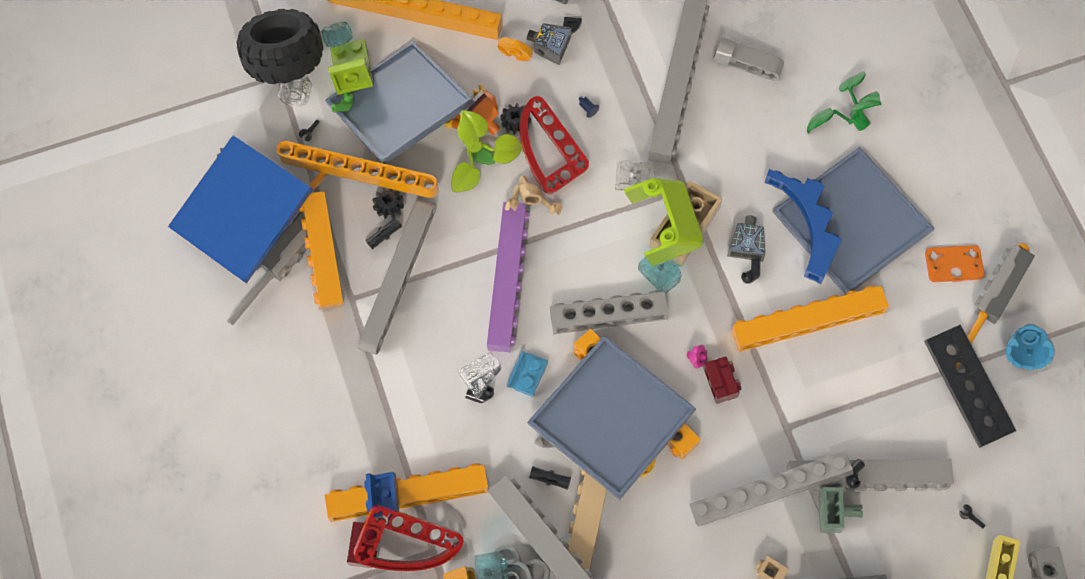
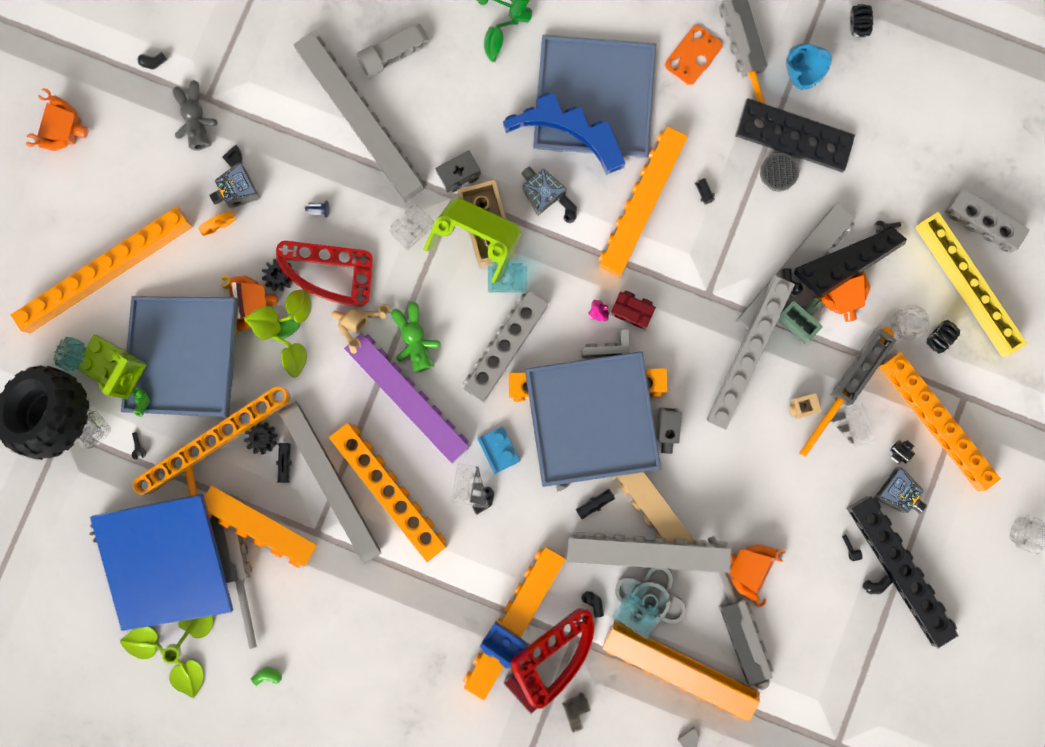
camera: 50 degrees left, 15 degrees up
(171, 297) = (184, 677): none -> lime plant
(218, 350) = (266, 674): none -> bright green arm
(435, 257) = (341, 440): none -> light orange brick
(474, 541) = (594, 601): none -> black arm
(556, 242) = (413, 335): none -> bright green animal
(663, 474) = (668, 419): none -> dark grey torso
(665, 376) = (609, 349): none -> light grey bracket
(714, 173) = (464, 163): none -> dark grey brick
(861, 357) = (704, 191): none -> black pin
(887, 526) = (848, 297): none -> orange torso
(907, 503) = (842, 265): none -> black wing
(931, 399) = (779, 171): none -> tile

